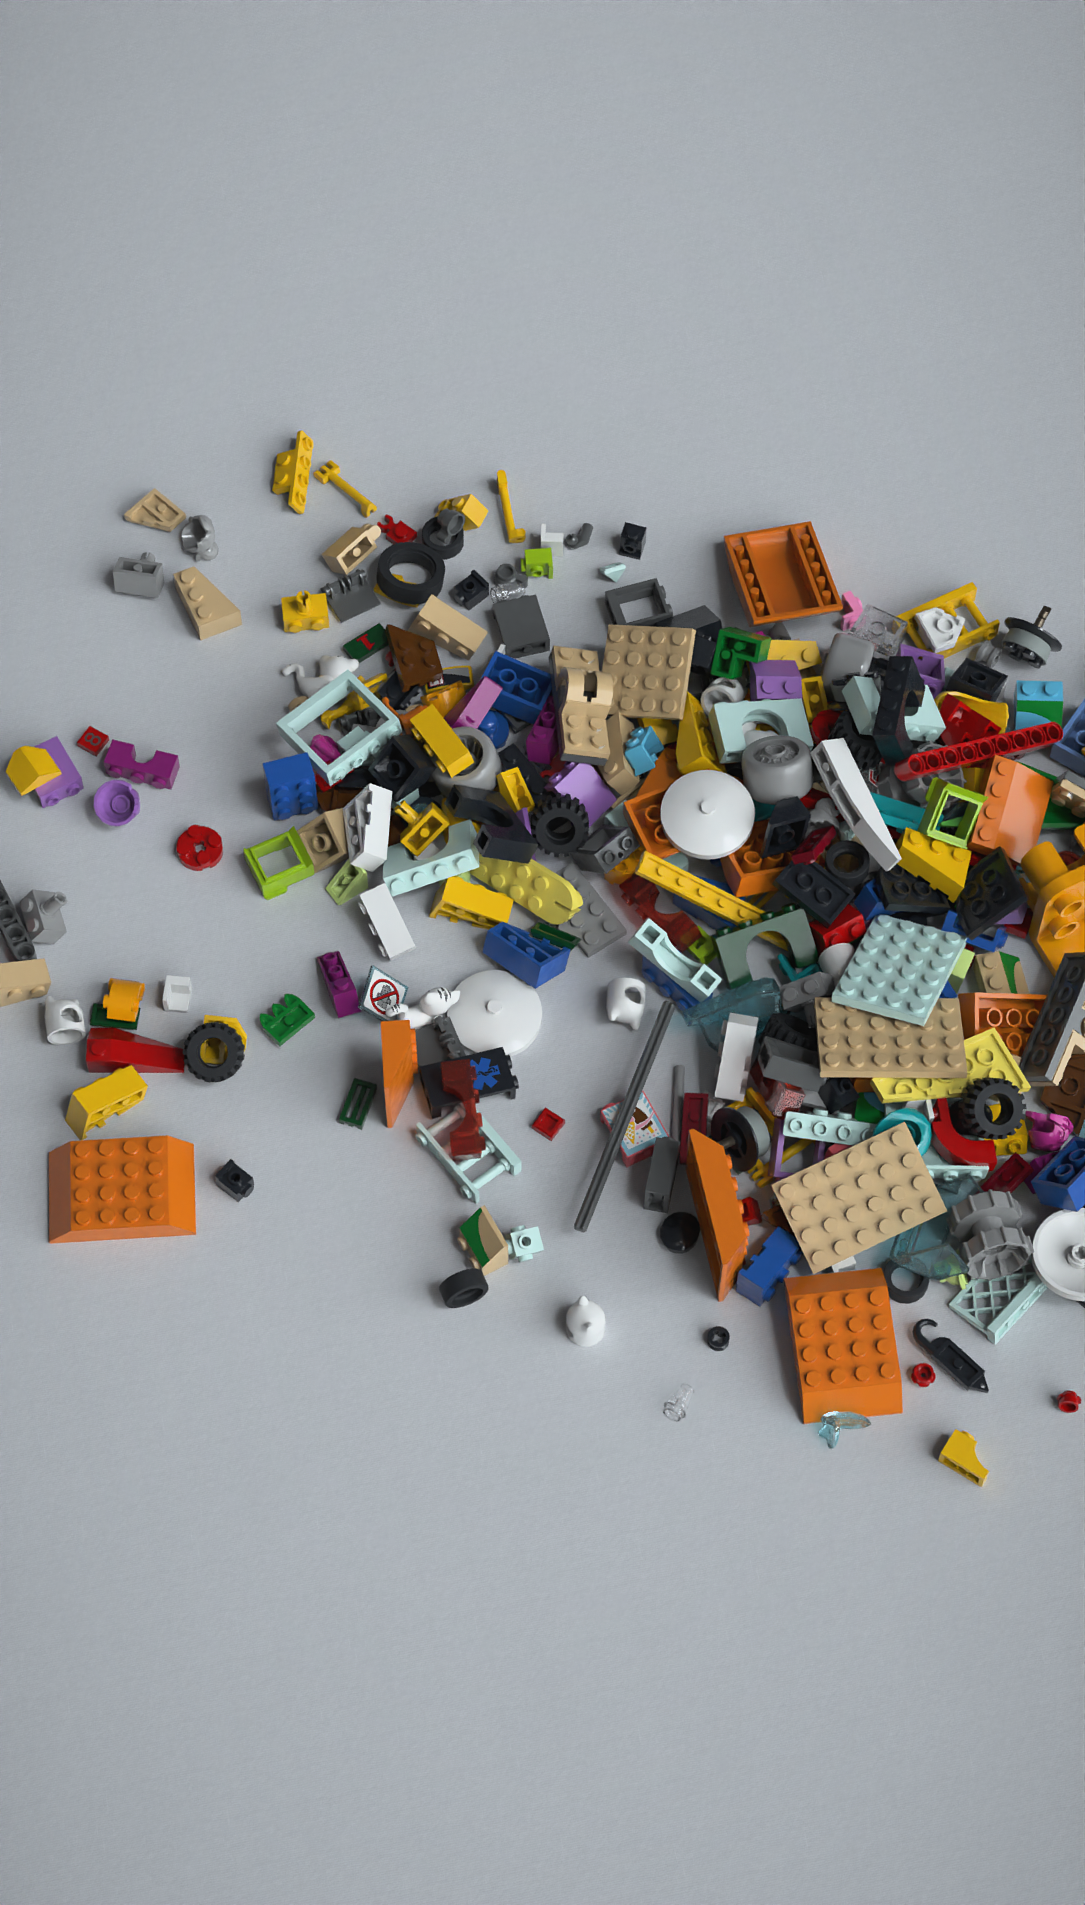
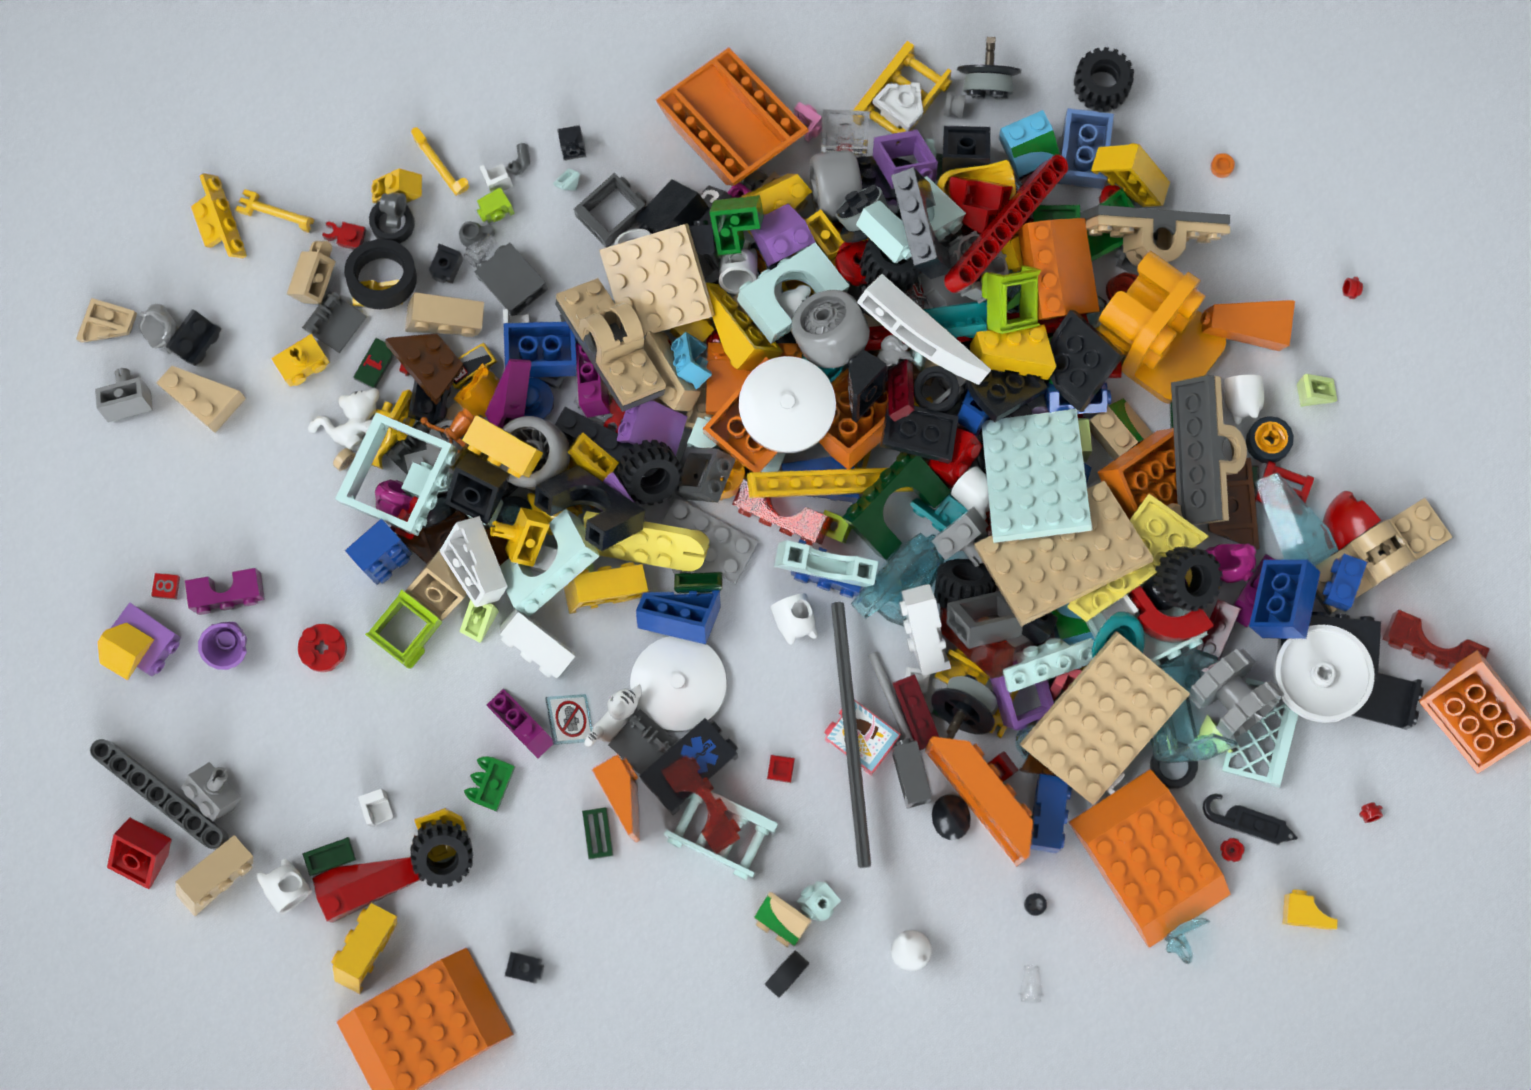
camera: 20 degrees left, 15 degrees up
(123, 999) = (329, 838): light orange cylinder -> none
(223, 556) = (194, 338): none -> black bracket

